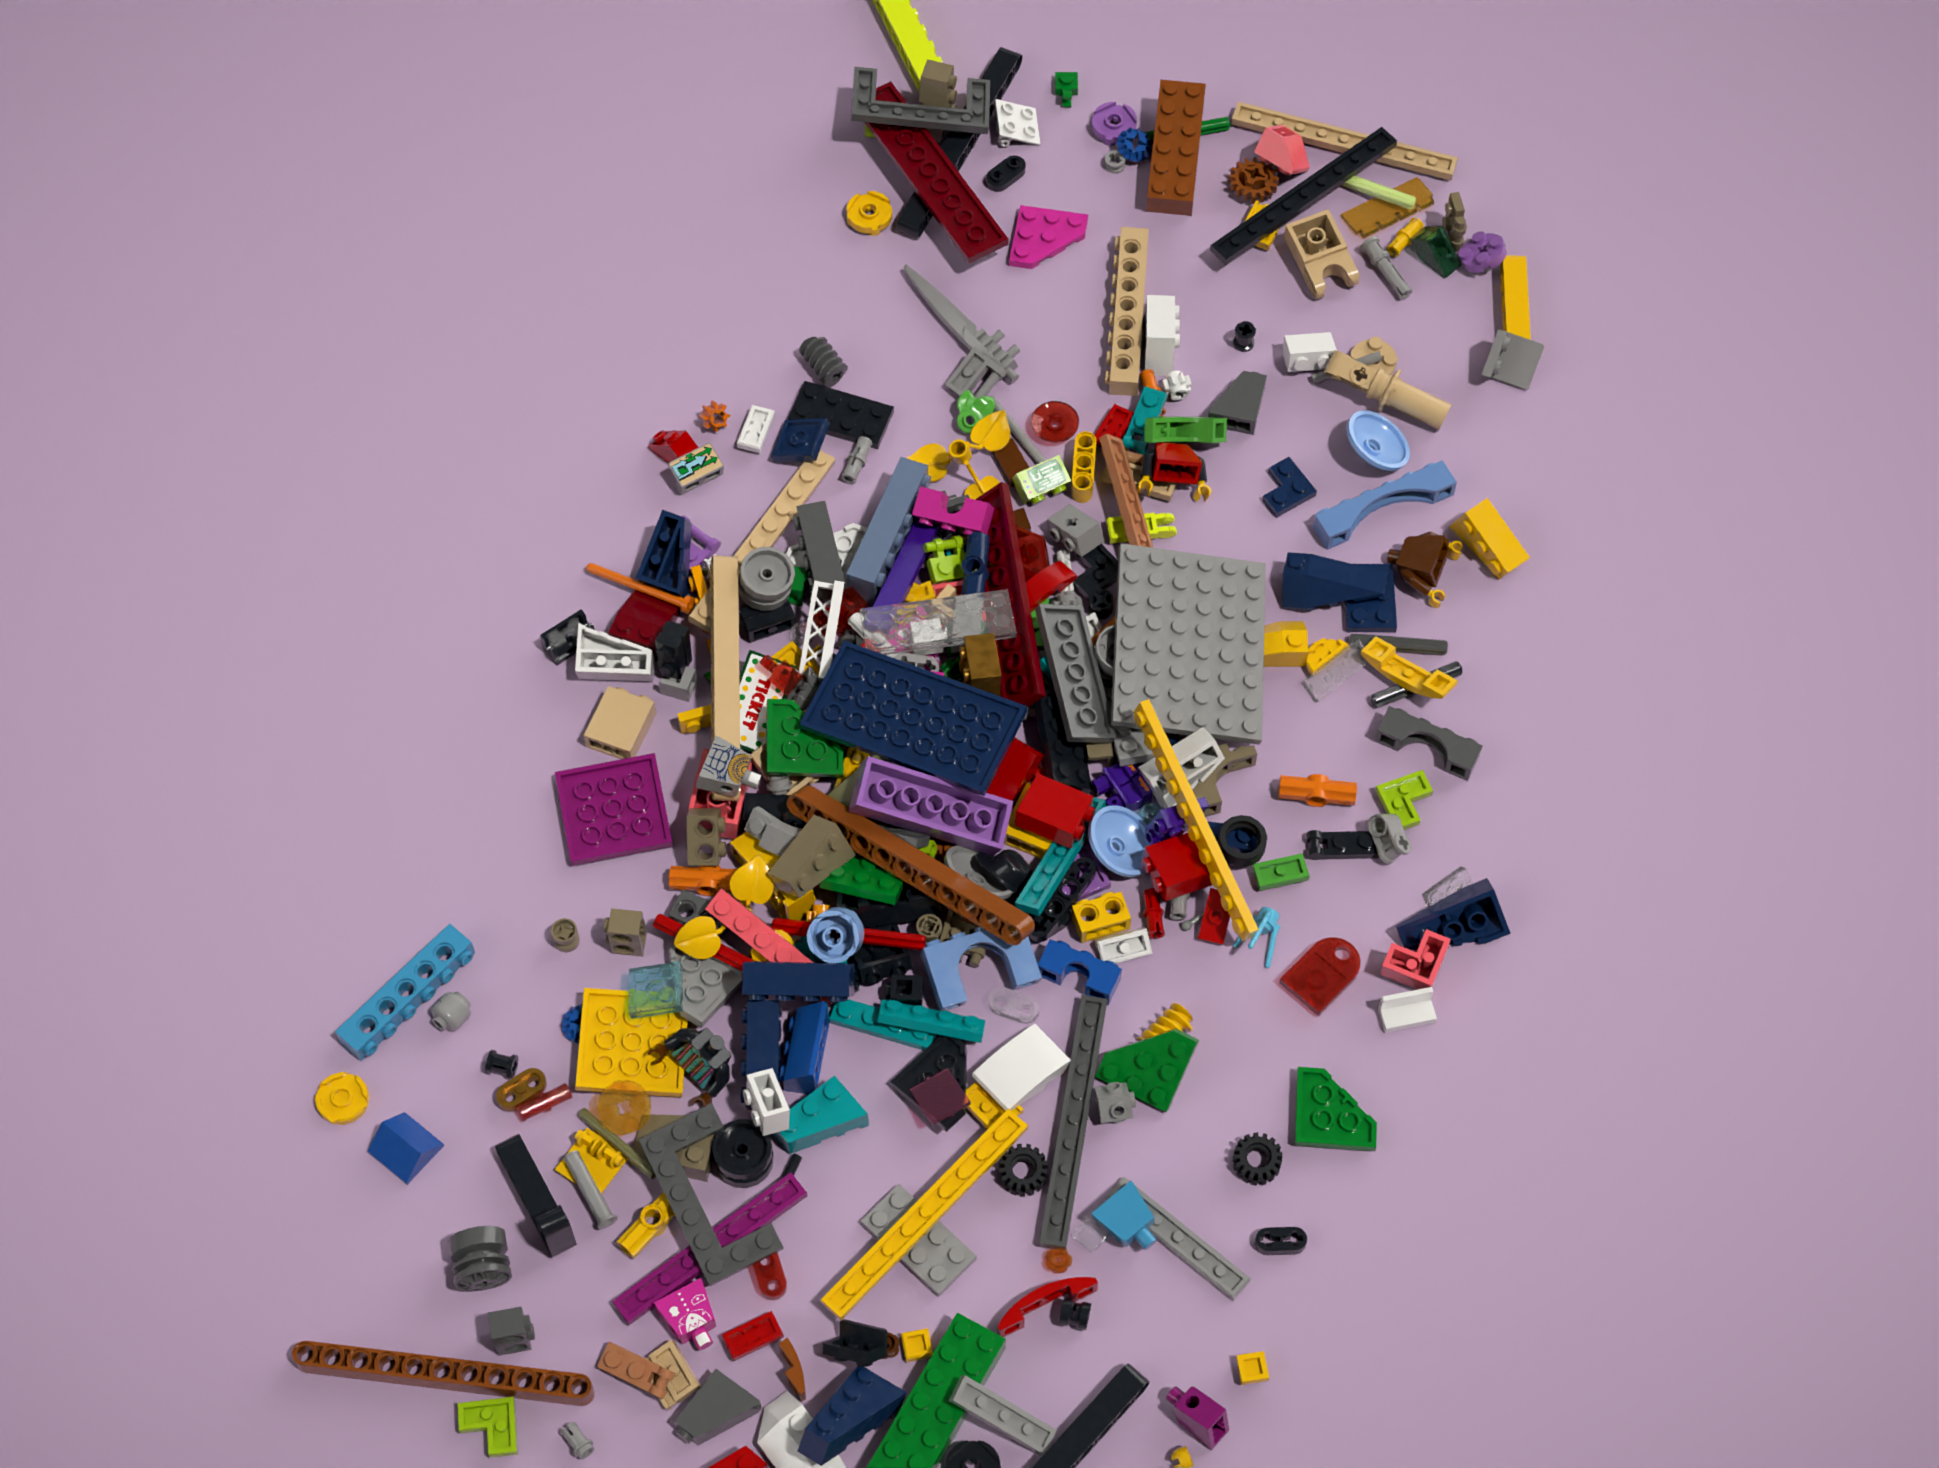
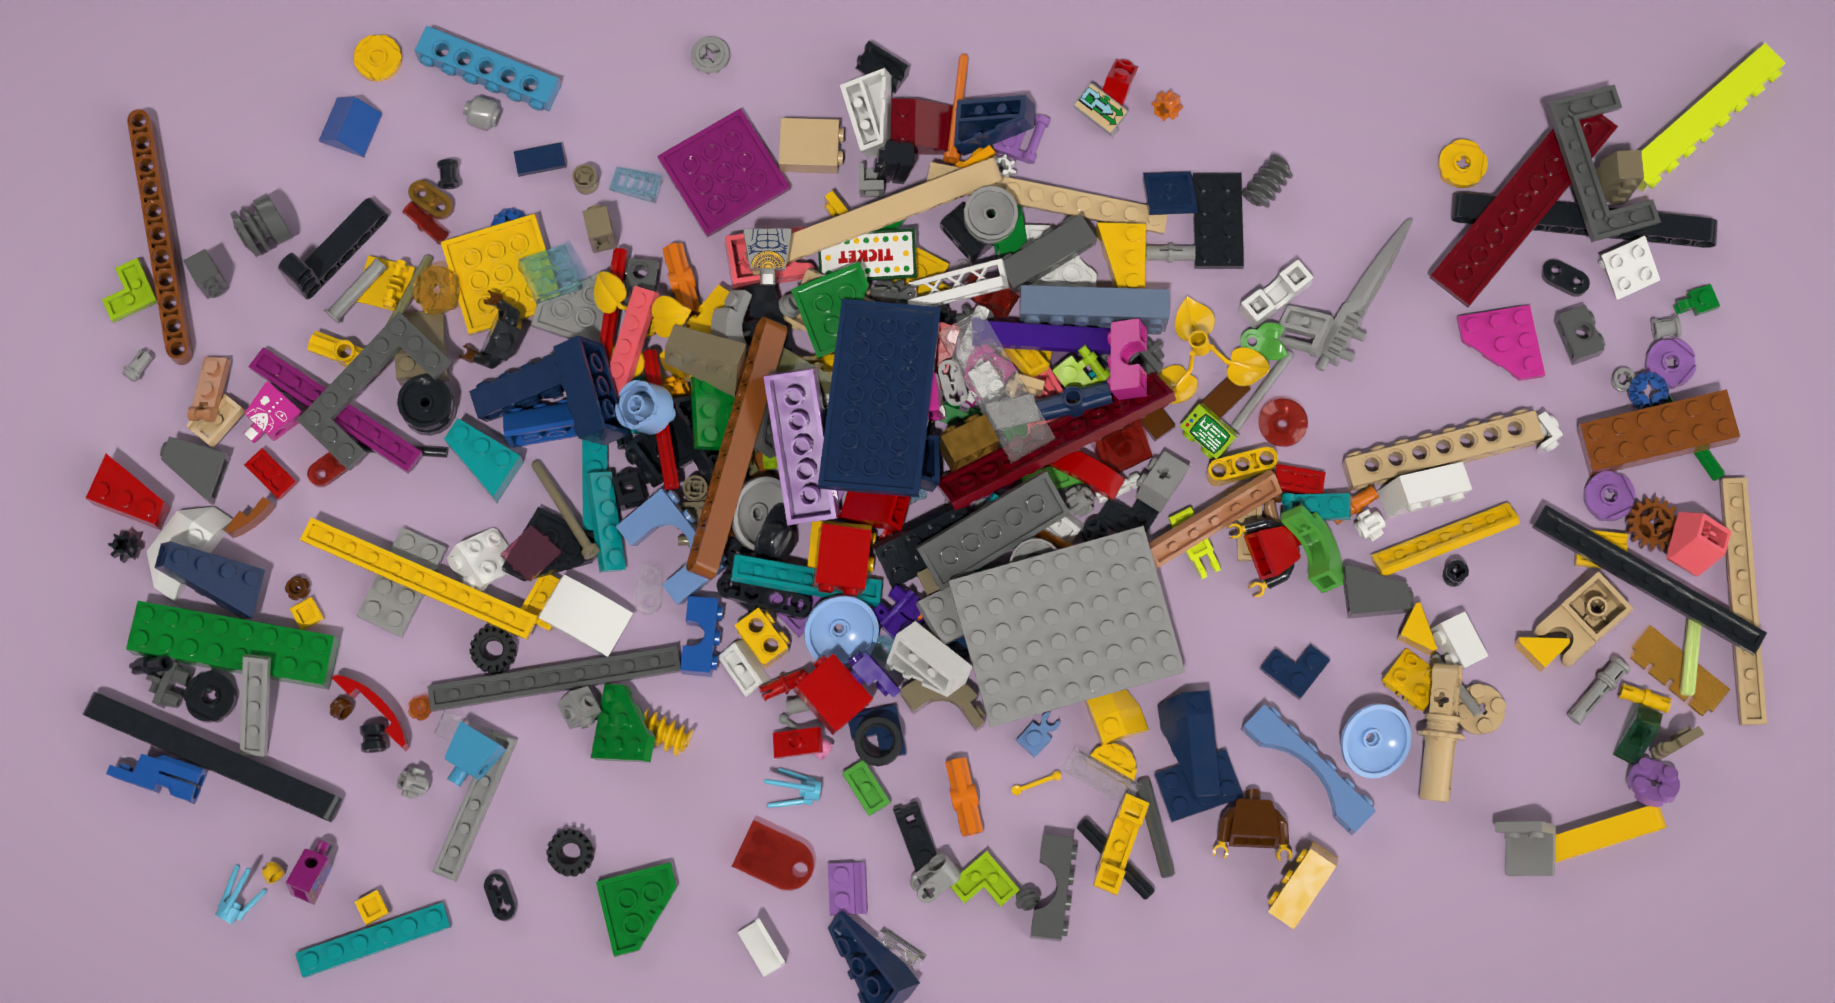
camera: 70 degrees right, 15 degrees up
(476, 780) = (714, 45): none -> light grey gear
(523, 974) = (539, 159): none -> dark blue tile
(583, 886) = (650, 196): none -> clear light blue slope
(699, 836) = (710, 259): dark tan brick -> none
(756, 429) = (1170, 148): white plate -> none
(767, 1101) = (465, 406): white brick -> none
(783, 676) = (896, 267): clear red plate -> none
(847, 493) = (1124, 253): none -> yellow wedge
(858, 1343) = (281, 562): black bracket -> none
(925, 1153) = (479, 559): none -> white bracket
(929, 380) = (1284, 289): none -> white arch
(954, 1041) = (589, 550): none -> dark tan bar
(1031, 1338) = (341, 708): none -> reddish brown plate
(1063, 177) = (1577, 348): none -> dark grey brick
(1080, 119) = (1666, 327): none -> light grey bush
(1136, 1287) = (412, 783): none -> light grey gear
(1145, 222) = (1550, 431): none -> white bracket
(1198, 827) = (856, 695): yellow plate -> none
(1210, 334) = (1445, 539): none -> yellow plate
(1215, 215) = (1604, 509): none -> medium lavender plate
(1279, 715) = (1035, 738): none -> medium blue plate
(1286, 1380) = (373, 940): none -> teal plate
(1287, 381) = (1417, 631): none -> yellow slope
(1323, 747) = (1016, 790): none -> yellow hinge
(1331, 401) = (1410, 678): none -> yellow hinge
(1338, 296) = (1541, 650): none -> yellow slope
(1372, 920) = (847, 888): none -> medium lavender plate
(1416, 968) = (804, 946): coral brick -> none
(1433, 767) = (1027, 899): none -> dark grey plate

